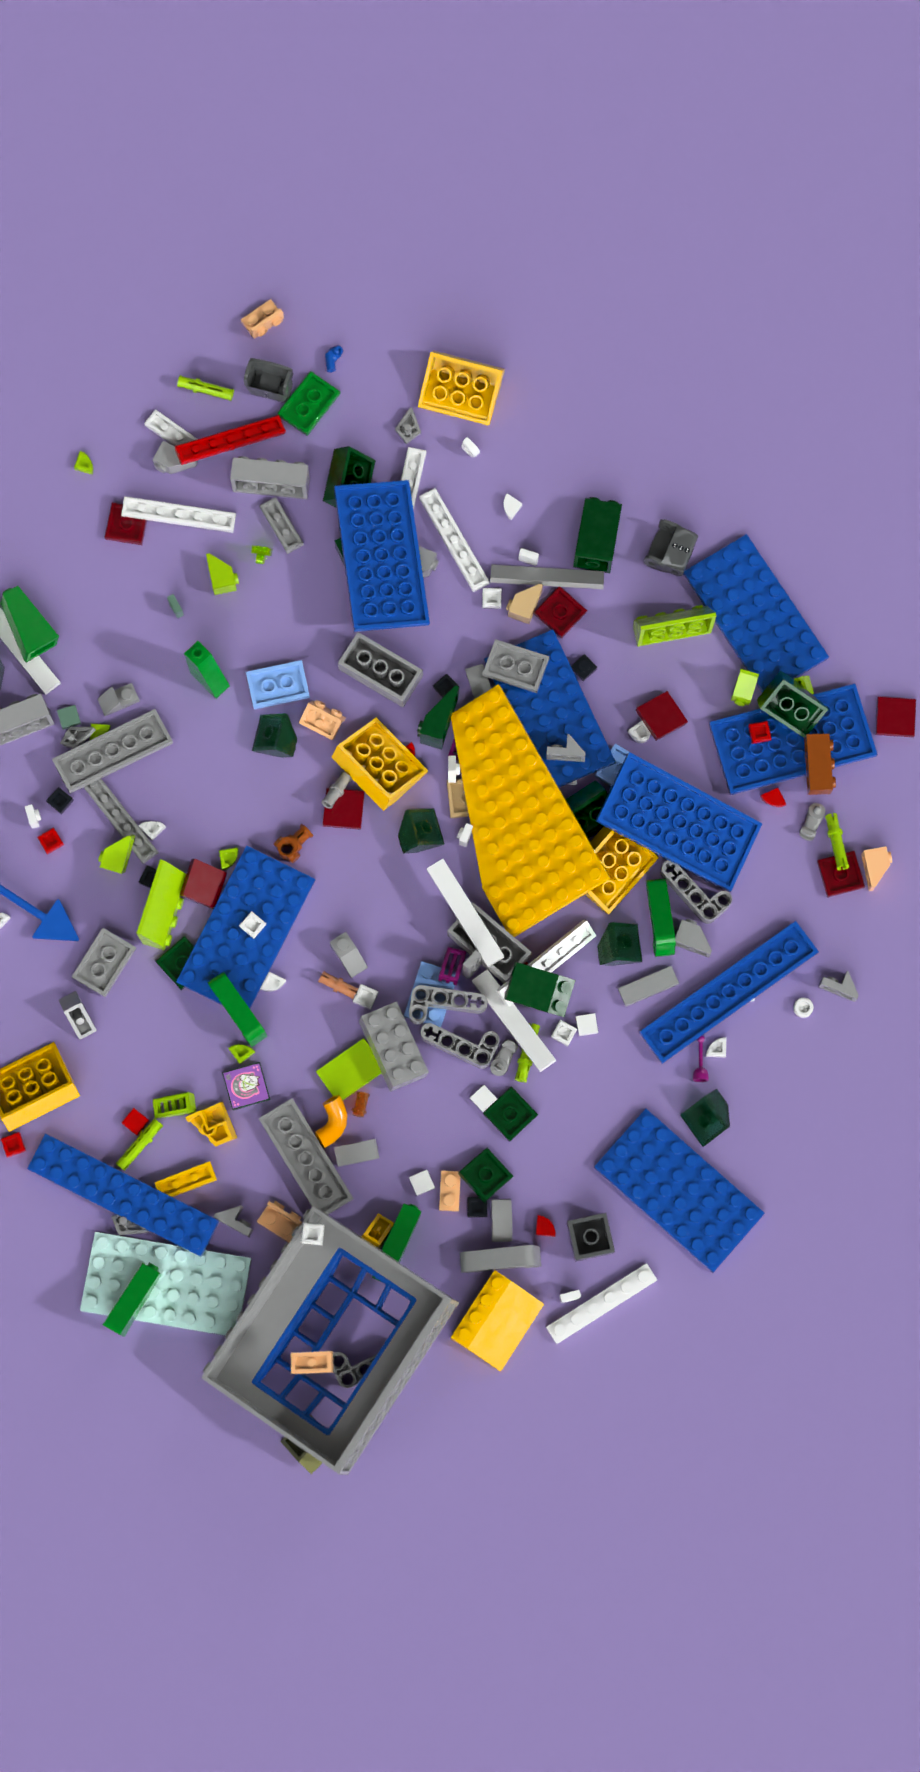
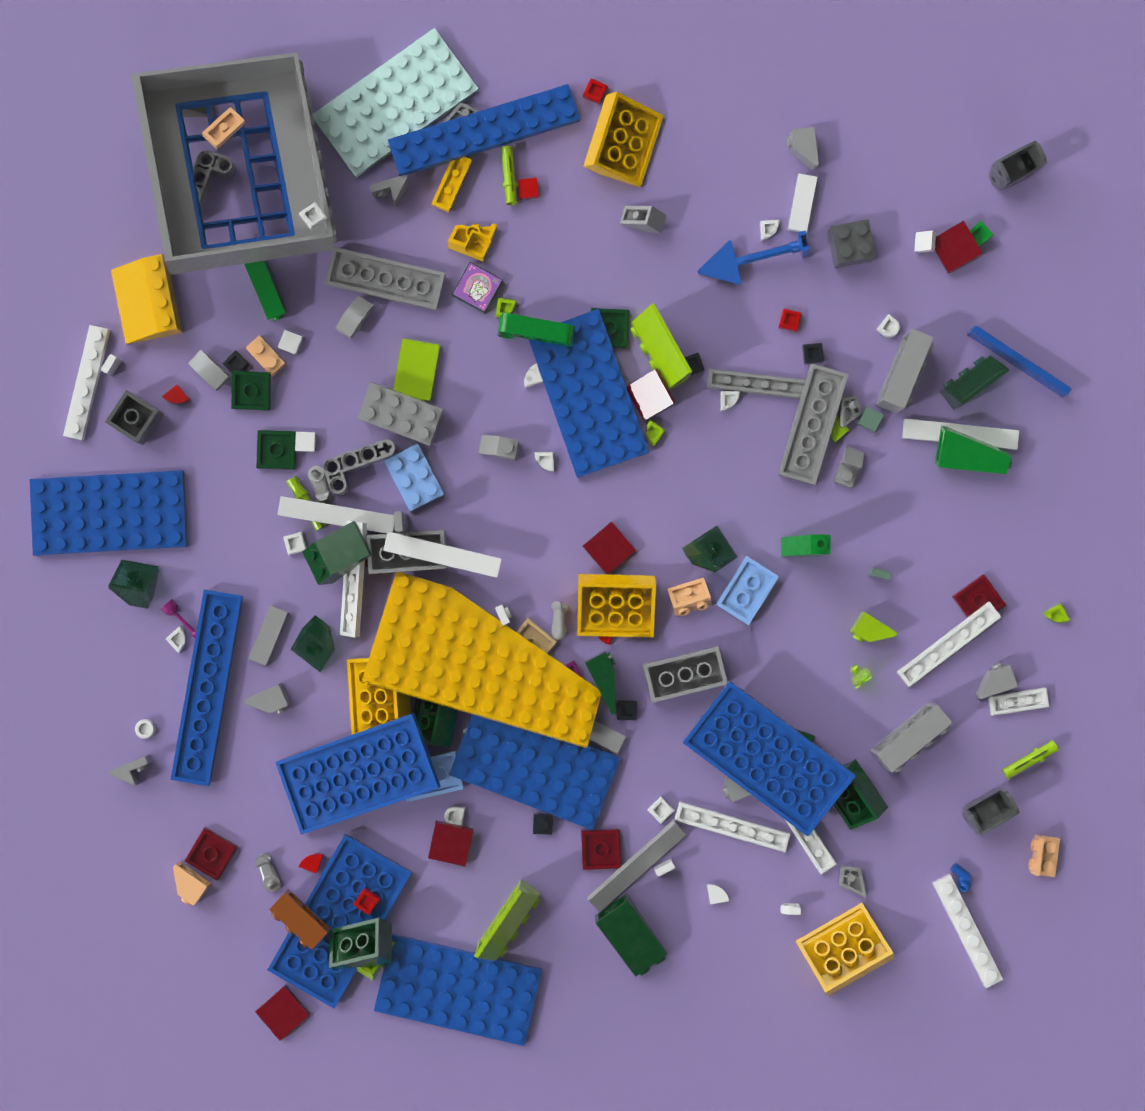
camera: 135 degrees right, 10 degrees up
(33, 816) = (819, 323): white plate -> none
(104, 962) = (663, 272): light grey plate -> none
(117, 855) = (731, 353): lime slope -> none
(133, 1299) = (401, 62): green slope -> none
(189, 1108) = (504, 234): lime slope -> none
(229, 440) = (970, 737): red tile -> none
(252, 925) = (585, 399): white tile -> none
(279, 1221) = (360, 220): light nougat bracket -> none
(281, 525) = (867, 711): light grey tile -> none
(294, 841) = (618, 487): dark orange connector -> none
(308, 403) = (943, 824): green tile -> none
(324, 914) = (545, 460): none -> white tile
(336, 790) = (626, 554): light grey pin -> none
(336, 1121) = (388, 322): light orange cylinder -> none
(338, 985) = (485, 419): nougat pin -> none
(360, 1104) = (385, 352): clear orange pin -> none
(365, 321) = (967, 931): none -> white plate
(365, 996) = (458, 431): white tile -> none
(378, 1230) = (285, 277): yellow slope -> none
(419, 831) = (537, 585): clear green slope -> none
(435, 788) = (558, 625): none -> light grey piece
(448, 1004) = (391, 480): light grey beam -> none
(449, 978) = (411, 498): magenta tile -> none
(453, 769) = (559, 654): white plate -> none
(500, 1258) = (182, 340): light grey beam -> none
(516, 666) = (589, 774): light grey plate -> none
(524, 604) = (631, 828): tan slope -> none
(572, 752) = (484, 750): light grey slope -> none
(586, 1024) = (284, 565): white tile -> none
(661, 917) = (305, 693): green beam -> none
(671, 548) = (567, 978): dark grey piece -> none
(692, 889) = (304, 735): light grey beam -> none
(744, 687) = (409, 924): slope -> none
(835, 835) = (234, 874): lime pin -> none

